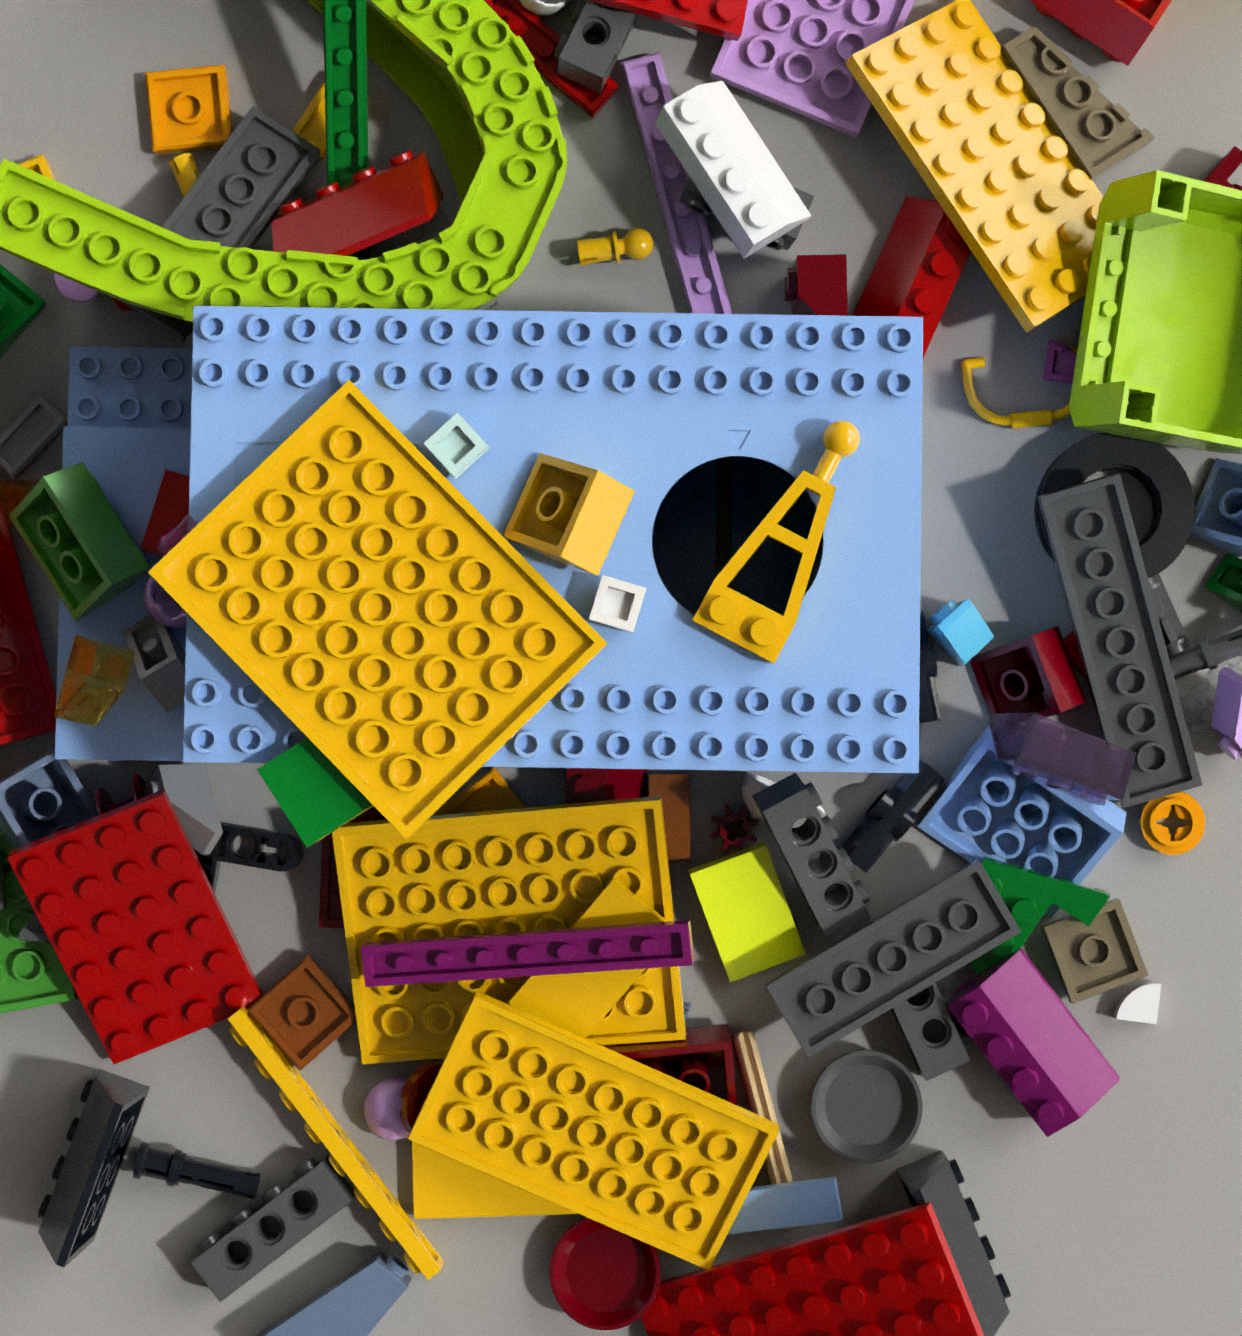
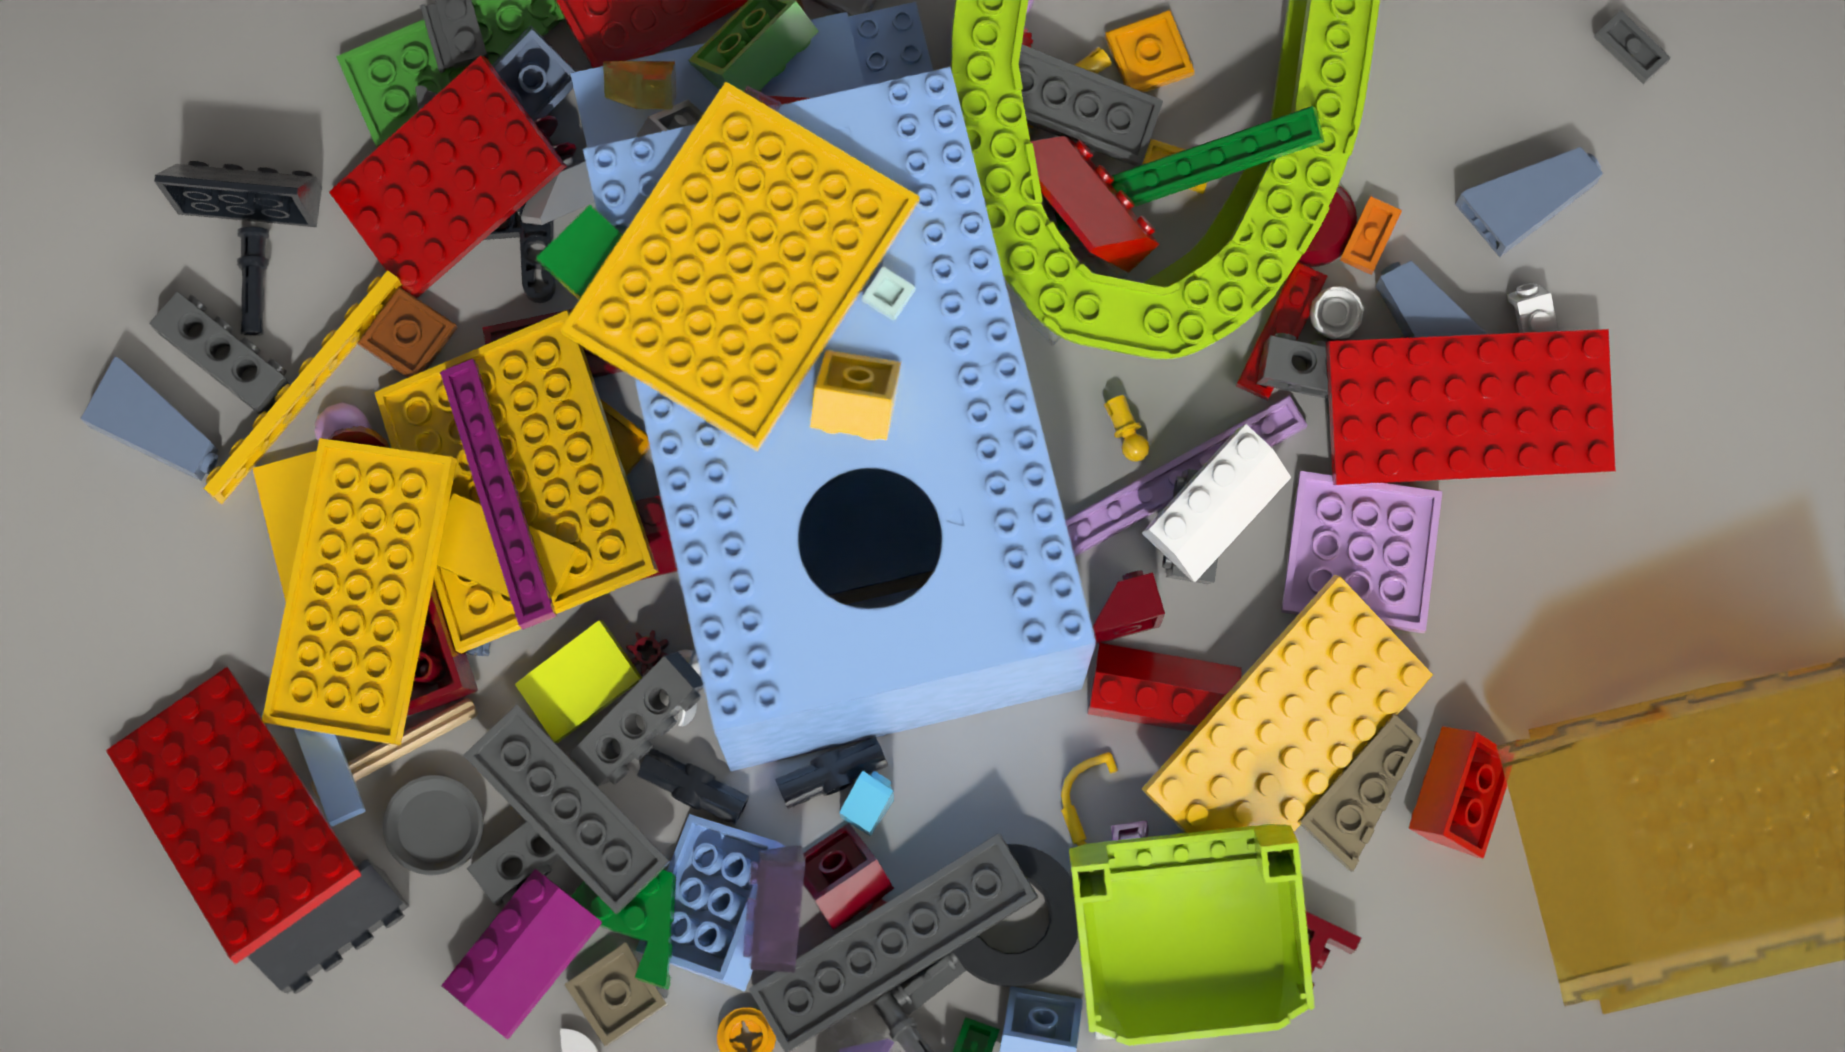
camera: 75 degrees right, 10 degrees down
(603, 1276) = (237, 636): dark red piece -> none
(617, 604) = (792, 451): white plate -> none
(676, 812) = (645, 597): dark orange slope -> none
(746, 620) = (805, 557): yellow plate -> none

